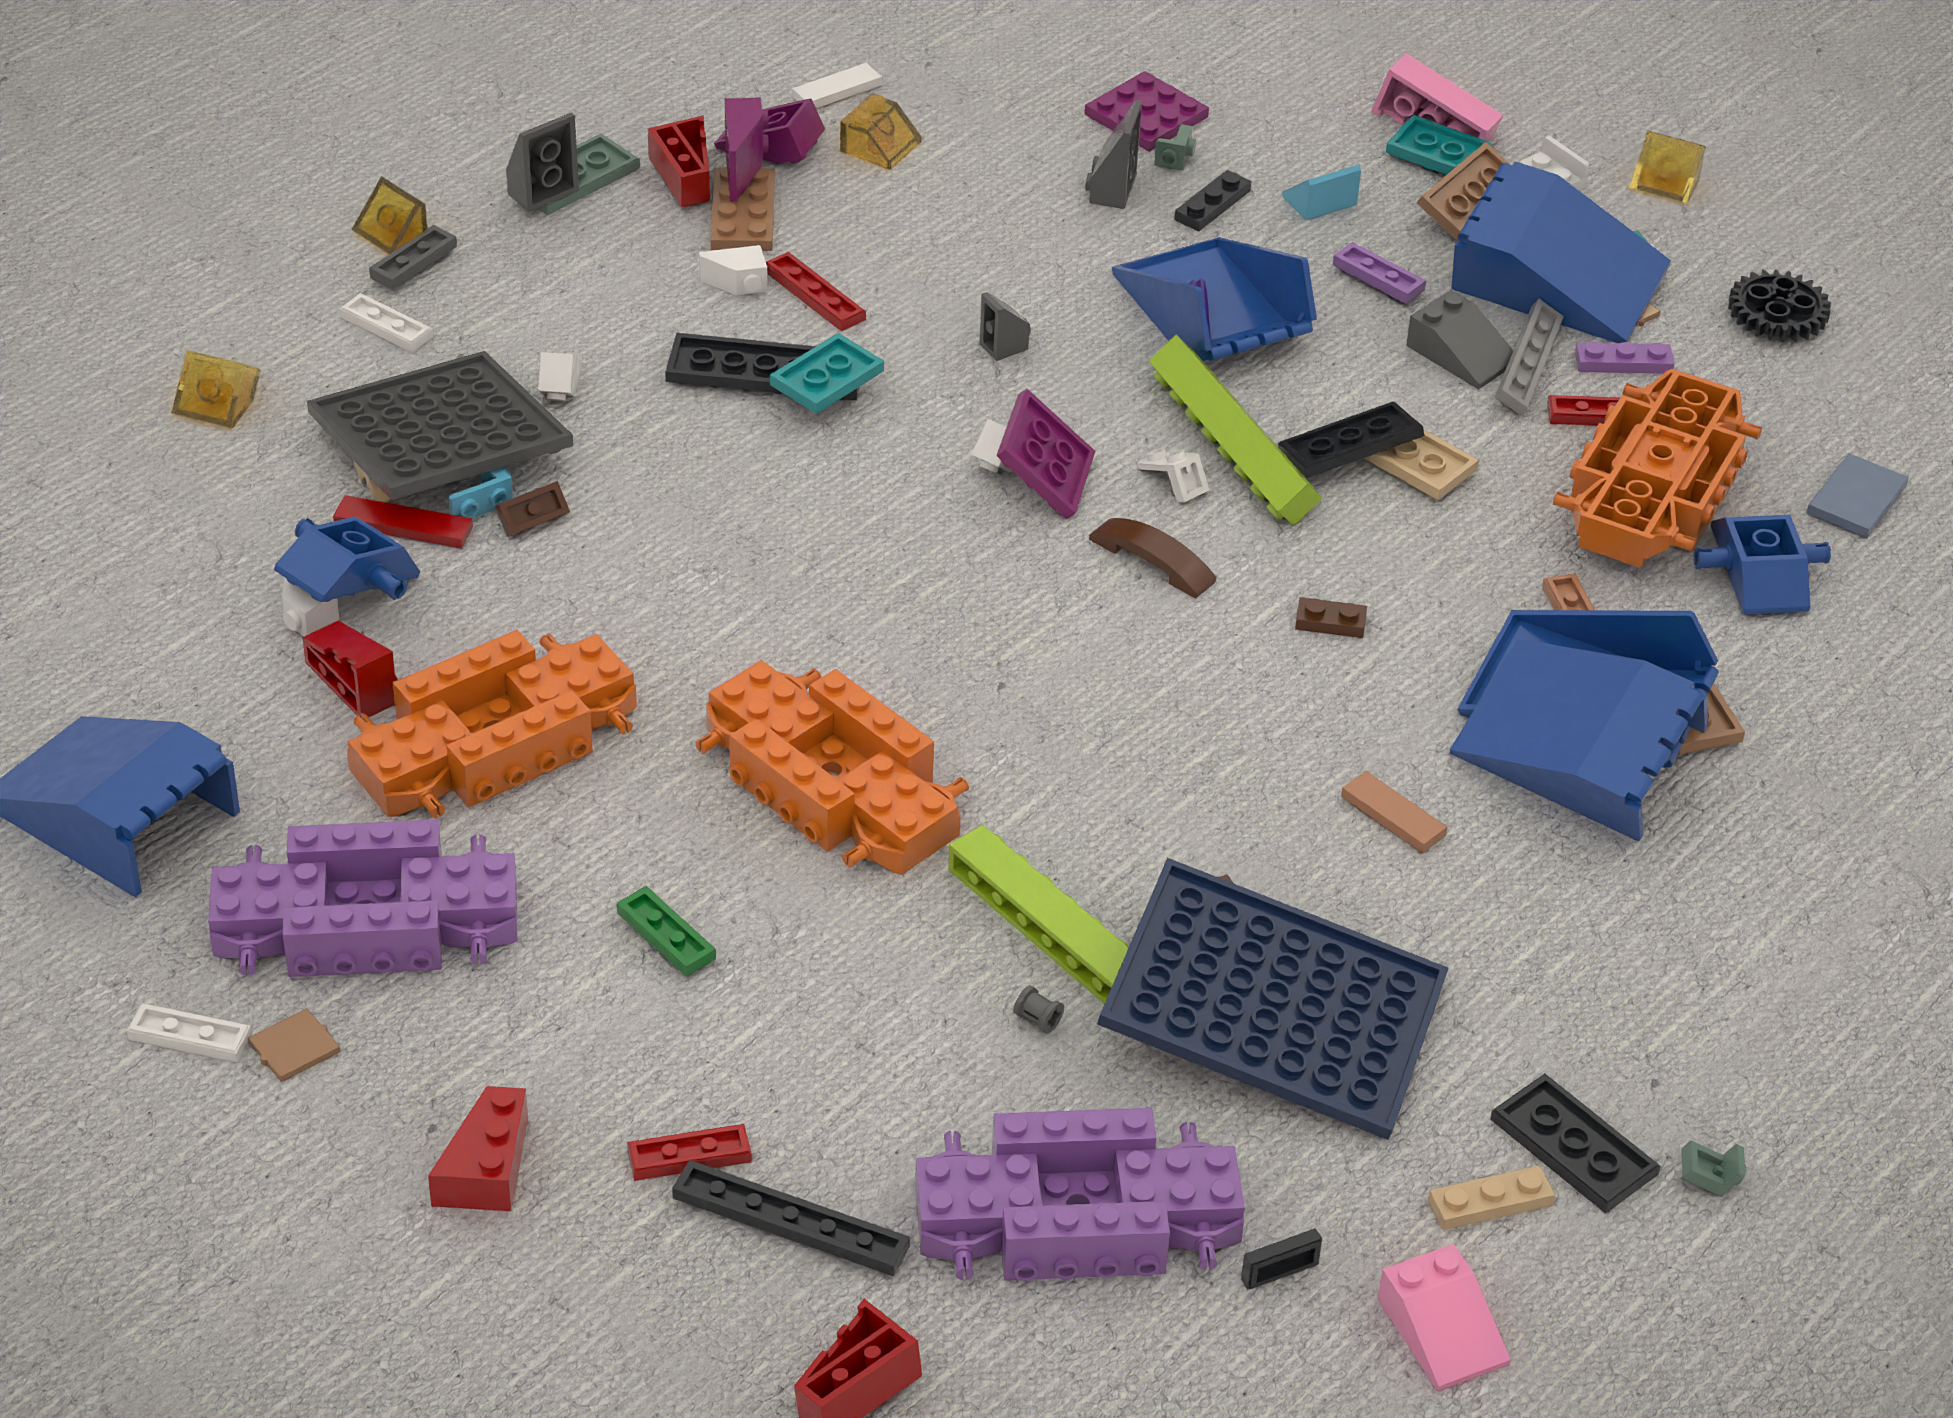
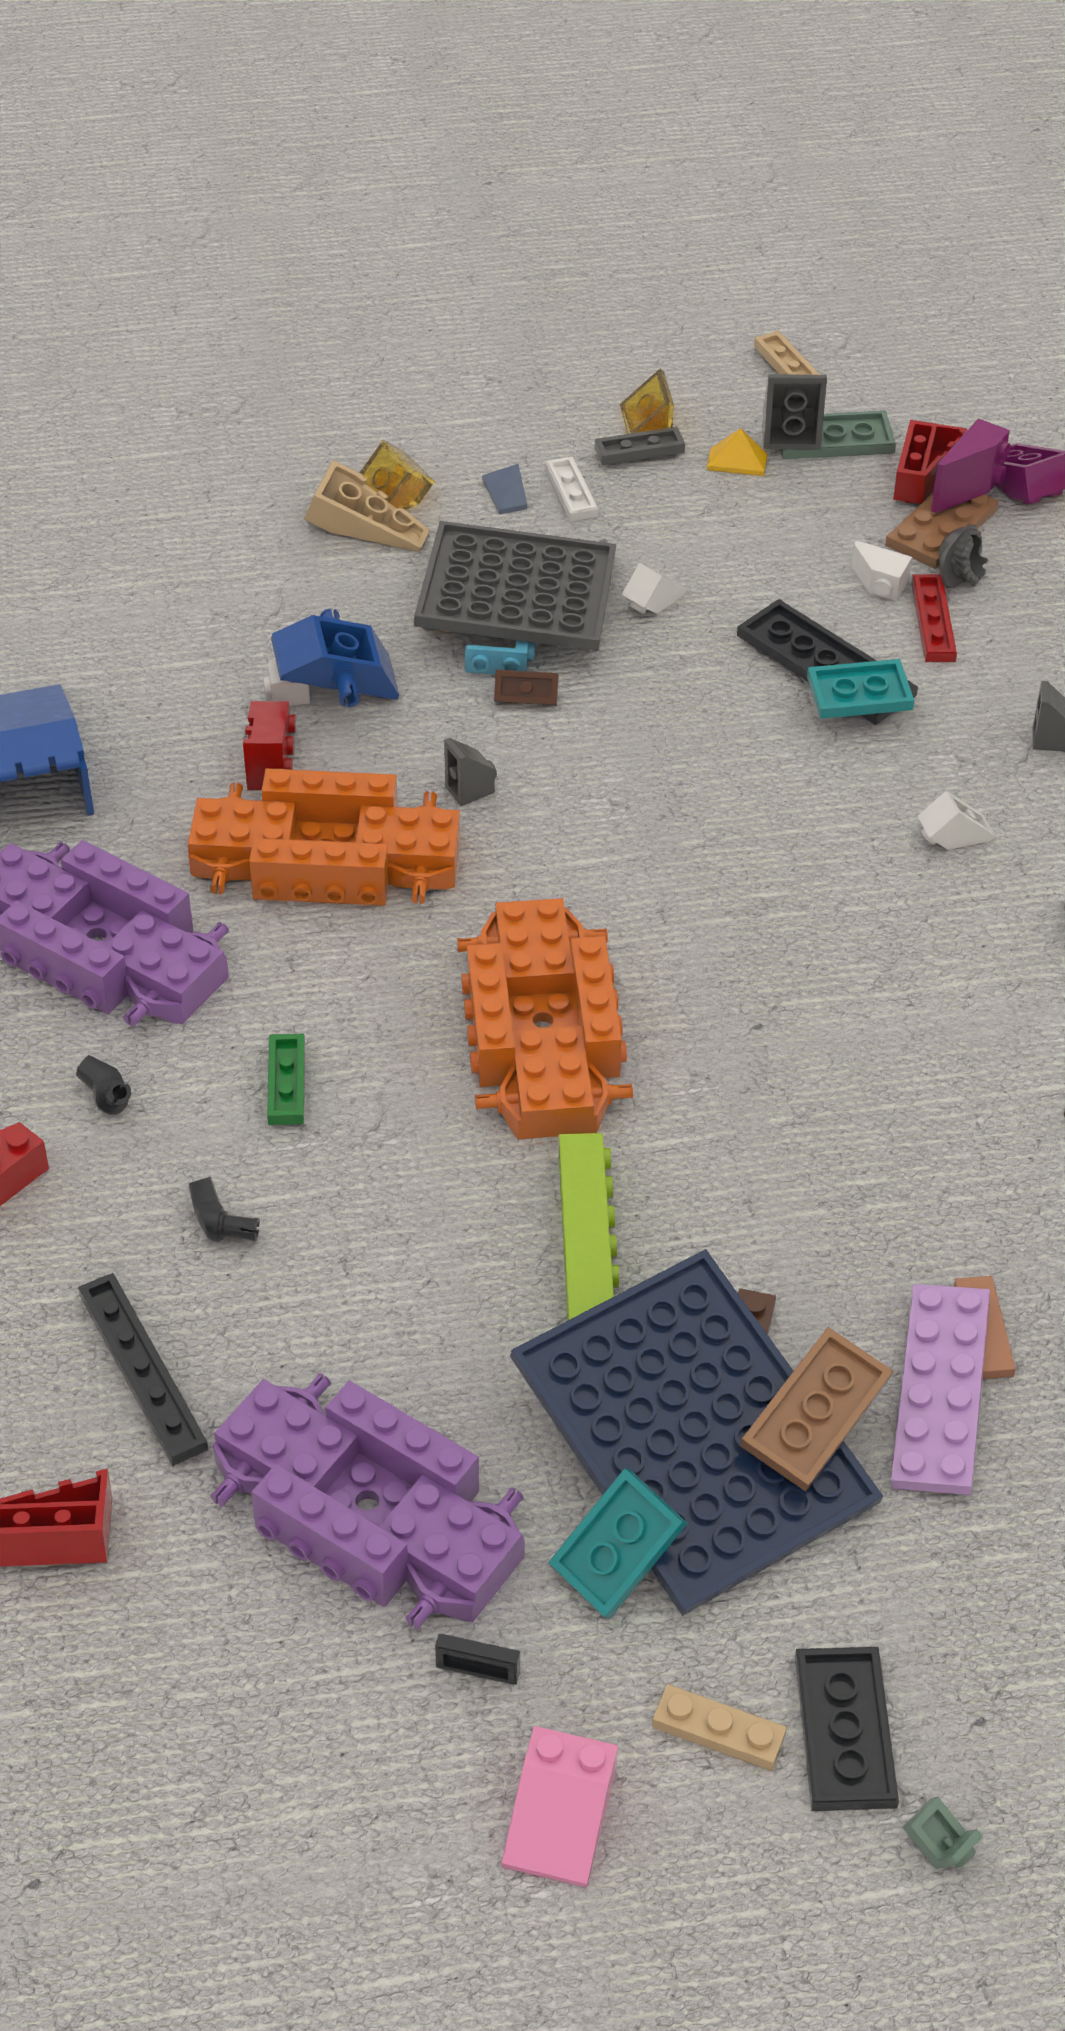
camera: 40 degrees right, 5 degrees up
(206, 430) = (355, 510): none -> tan wedge
(327, 348) = (506, 489): none -> sand blue slope
(407, 521) = (427, 651): red tile -> none
(469, 126) = (782, 355): none -> tan plate
(508, 228) = (738, 455): none -> yellow slope
(517, 1022) = (107, 1085): none -> black arm
(561, 605) = (467, 772): none -> dark grey slope
(671, 1153) = (130, 1266): red tile -> none
(724, 1069) = (213, 1218): none -> black arm
(794, 227) = (961, 557): none -> dark grey hair
(1038, 1009) = (501, 1316): dark grey bush -> none
(1046, 453) = (974, 846): magenta plate -> none
(1184, 567) = (1002, 985): reddish brown slope -> none
(1307, 1110) = (617, 1543): none -> teal plate
(1355, 928) = (816, 1408): none -> medium nougat plate
(1411, 870) = (941, 1390): none -> lavender plate

